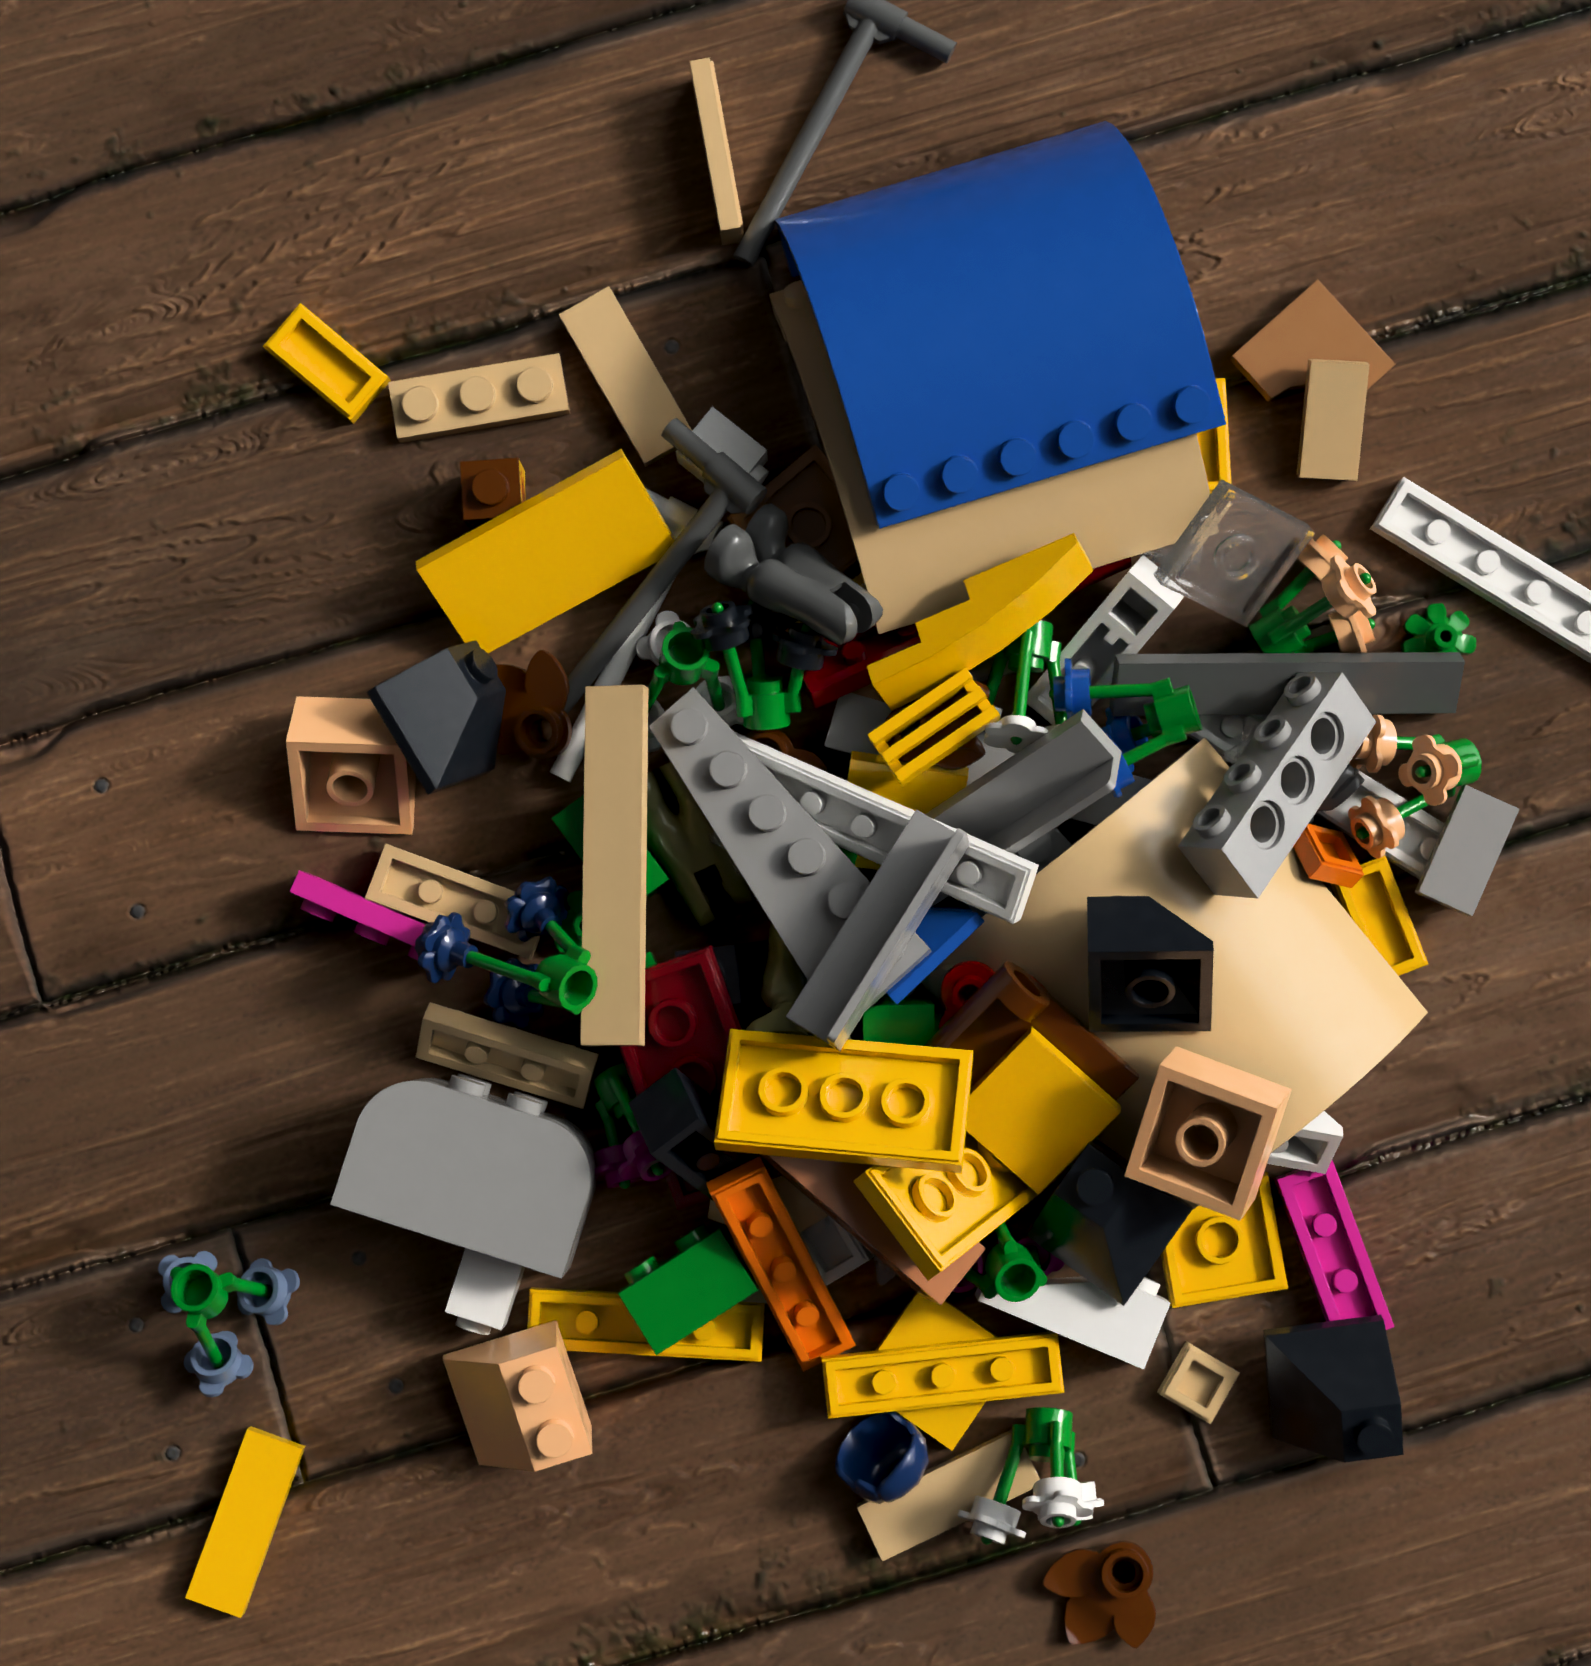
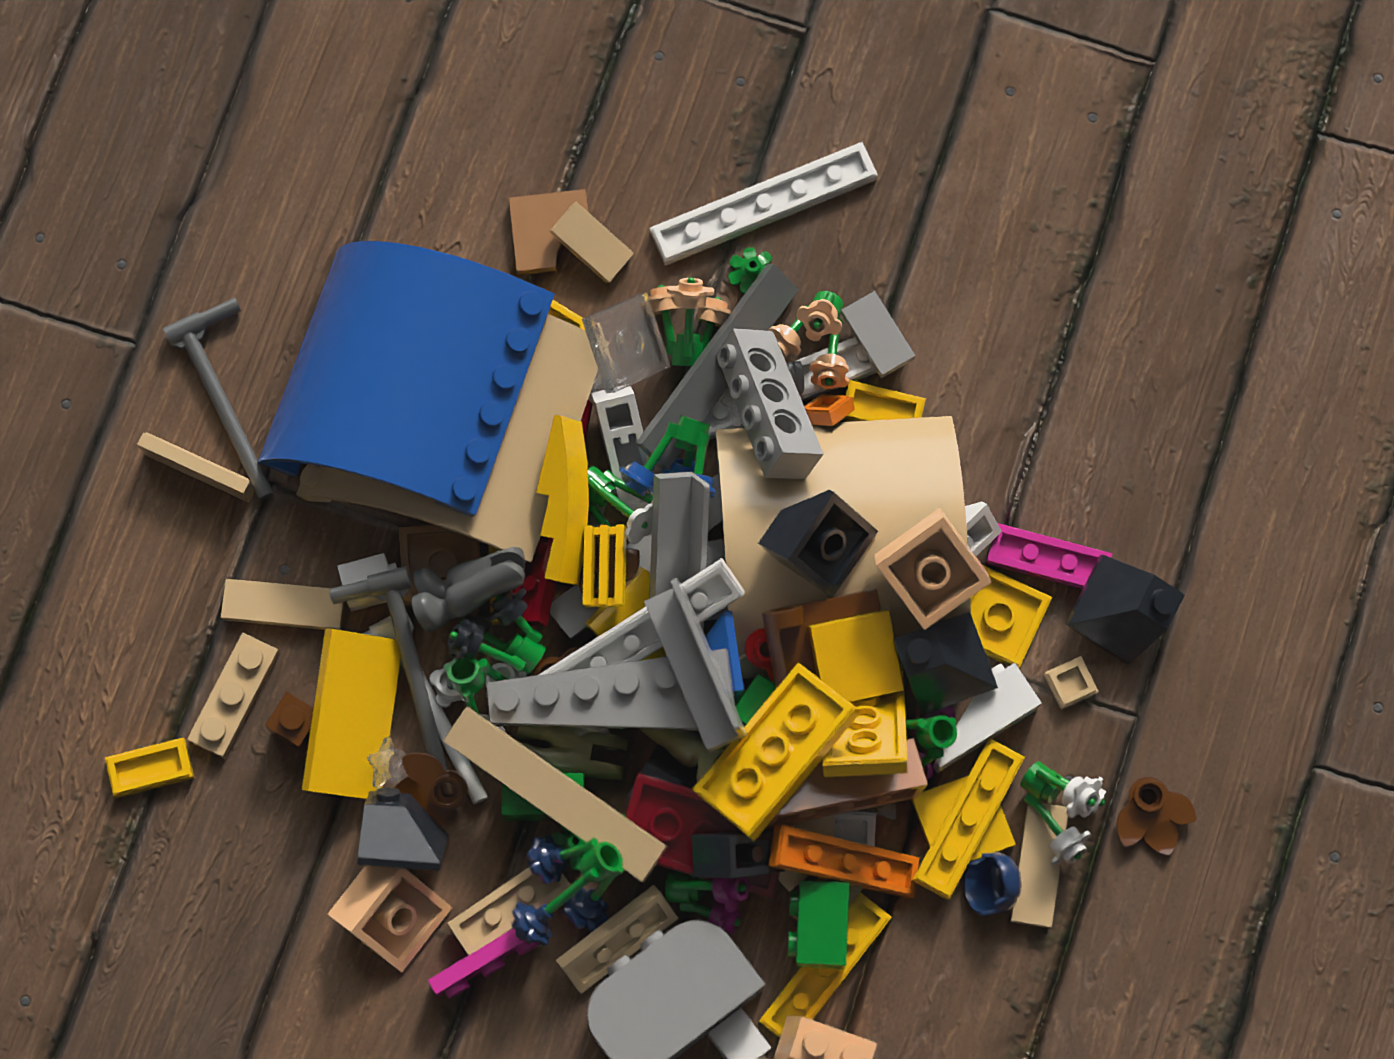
camera: 55 degrees left, 10 degrees down
(517, 627) = (387, 764): none -> clear plate

